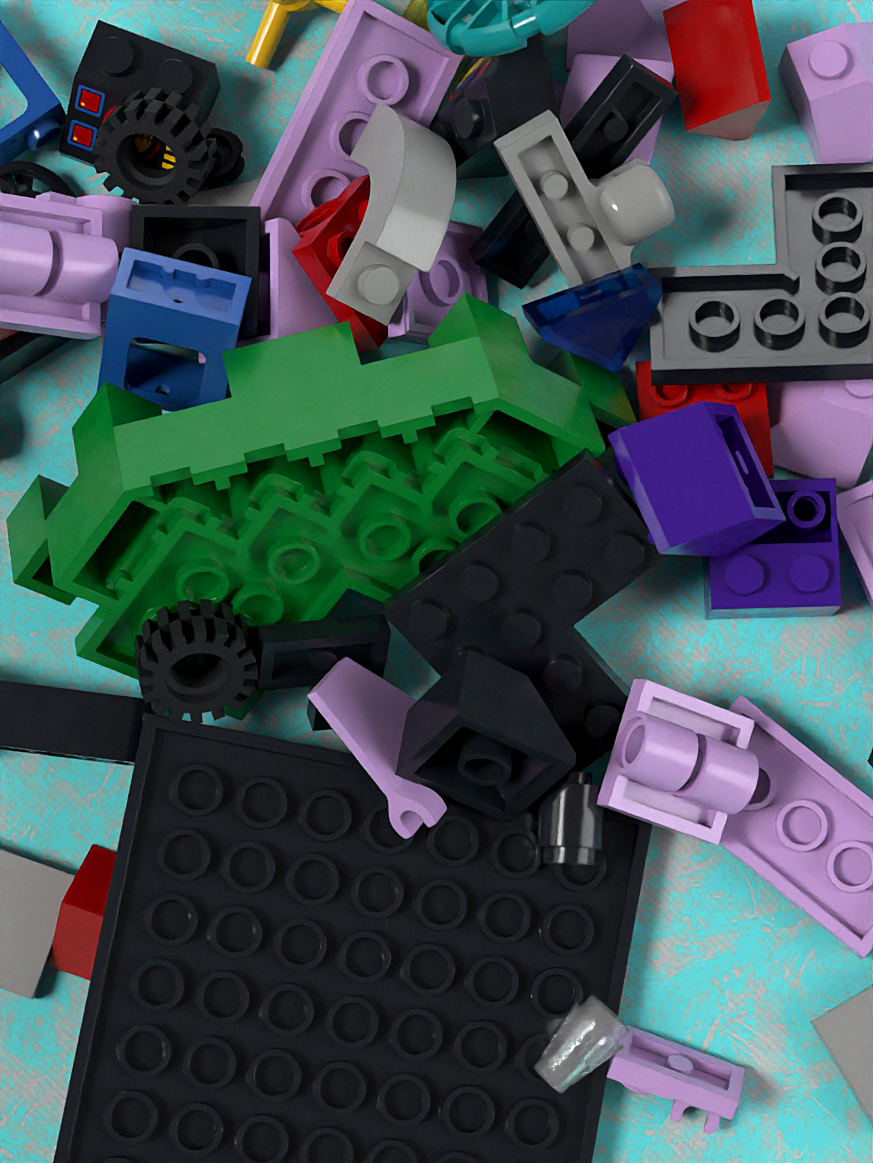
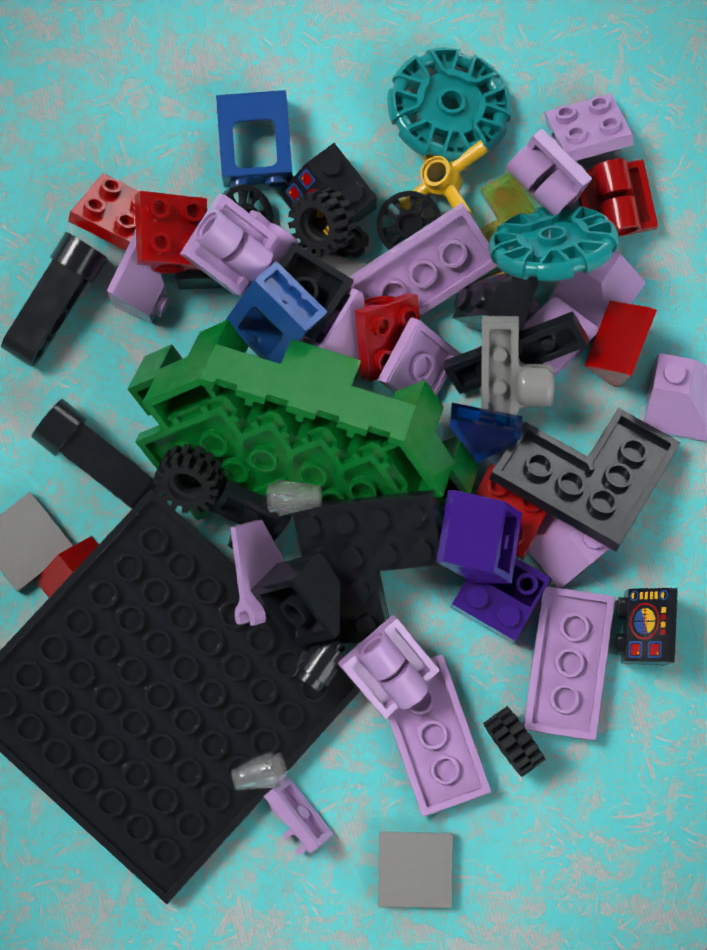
camera: 30 degrees right, 0 degrees up
(283, 75) = (408, 221): none -> black wheel
(374, 591) = (292, 497): none -> clear cone
(405, 214) = (420, 325): light grey arch -> none

